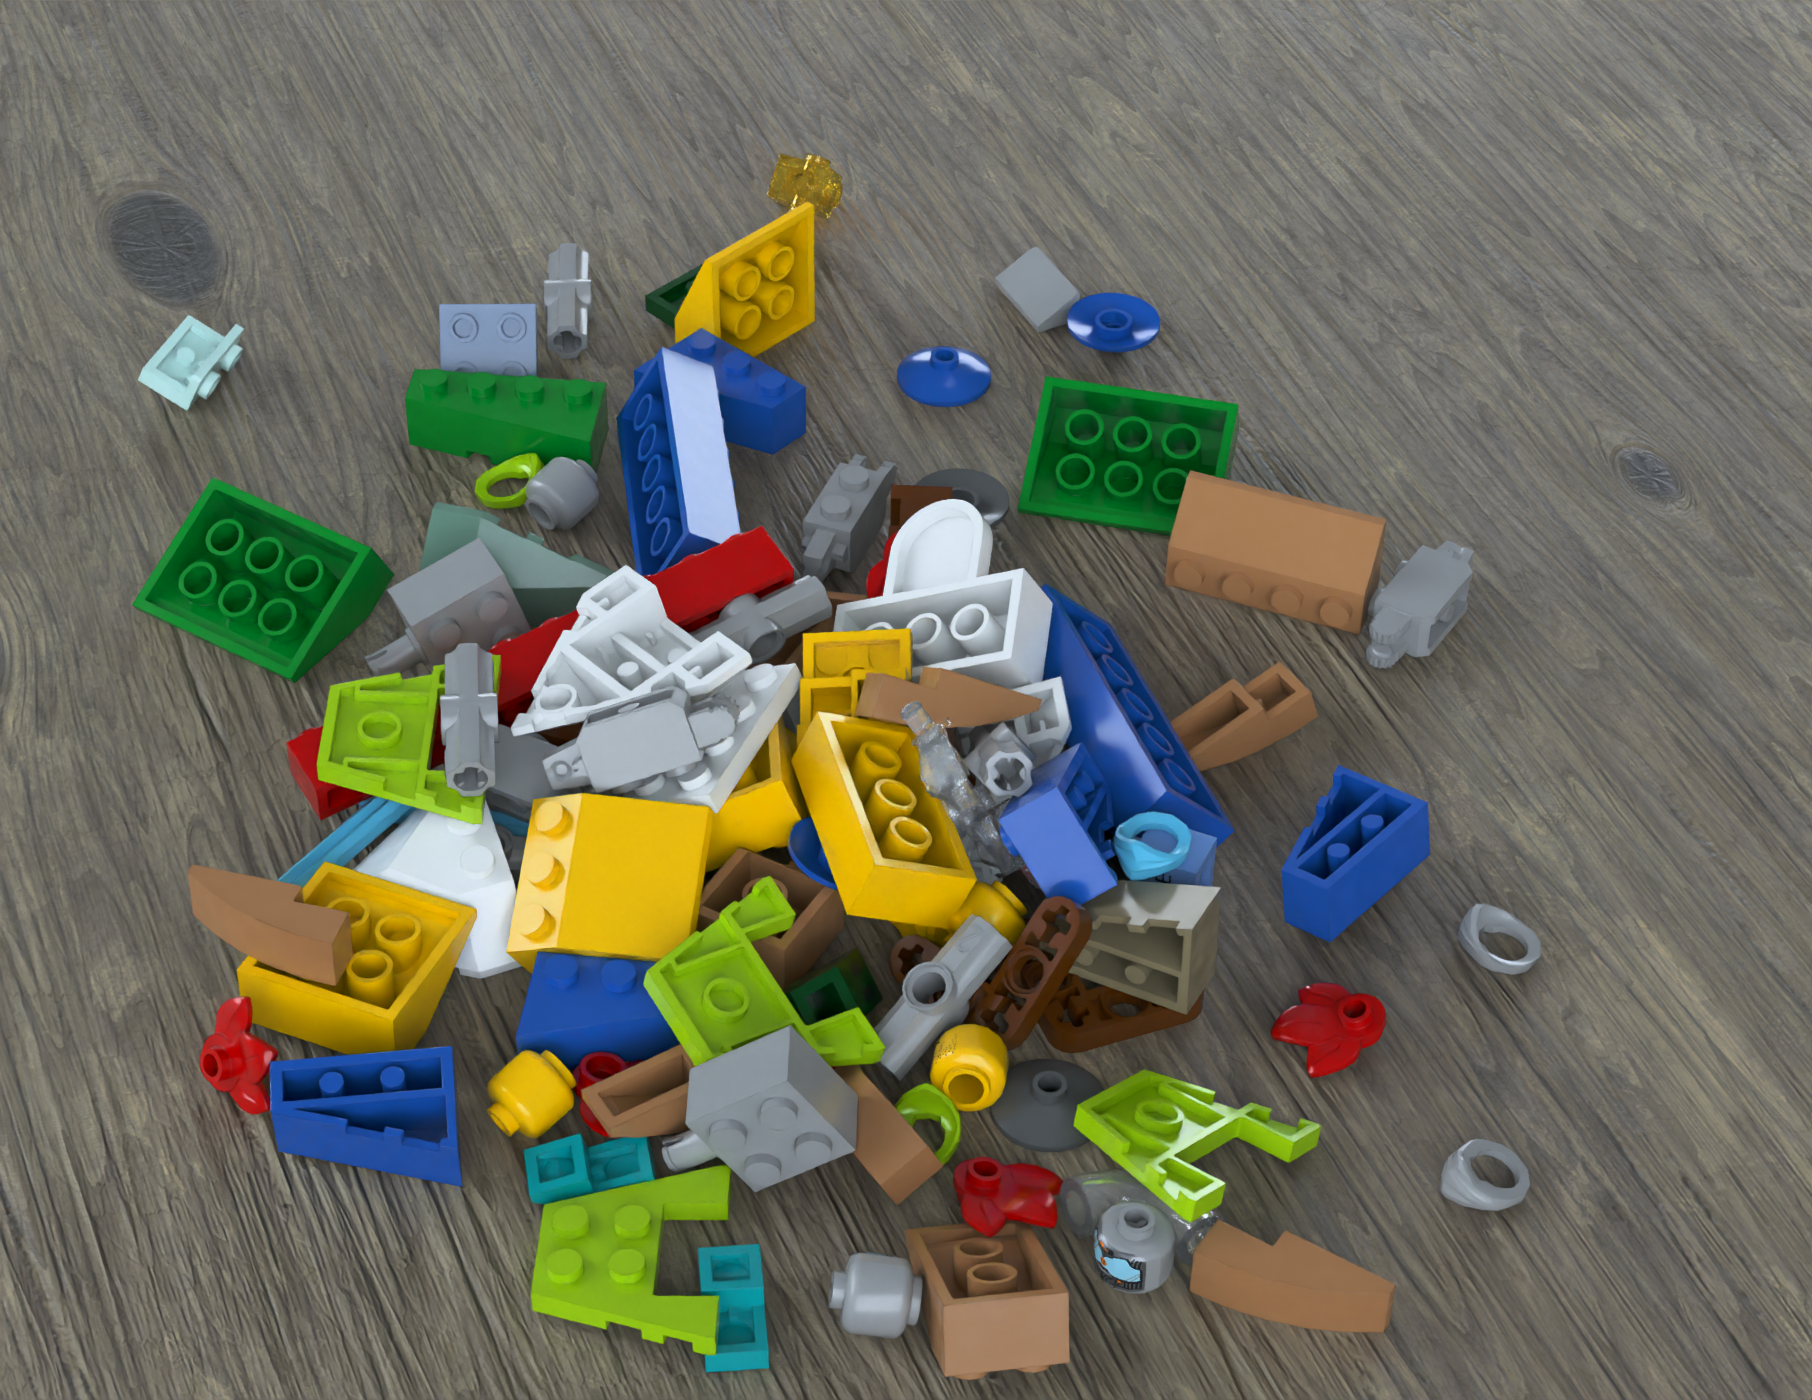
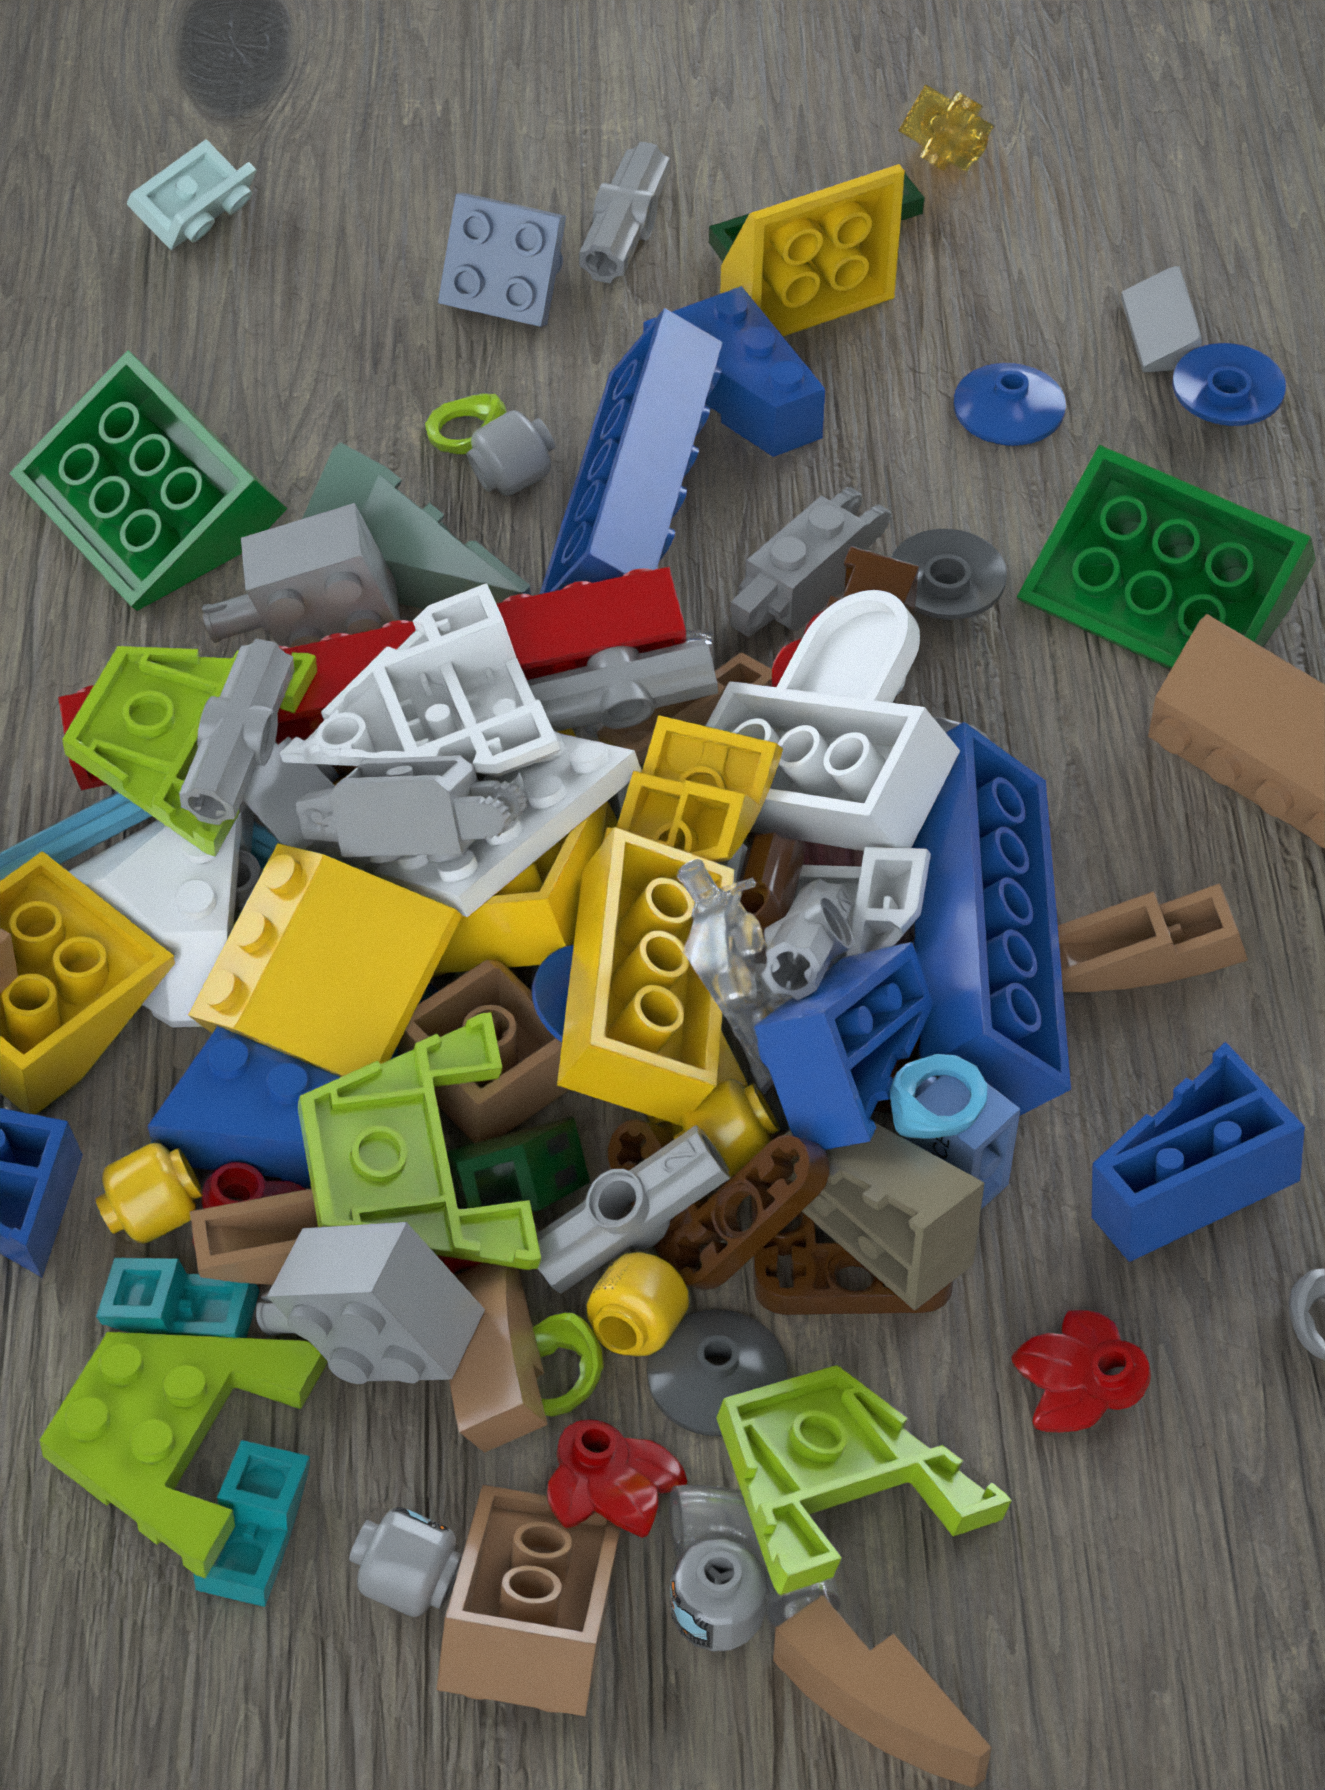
camera: 20 degrees right, 10 degrees up
(507, 415) = (496, 346): green wedge -> none
(942, 695) = (769, 849): medium nougat slope -> none
(1464, 1187) = (1145, 1631): light grey piece -> none

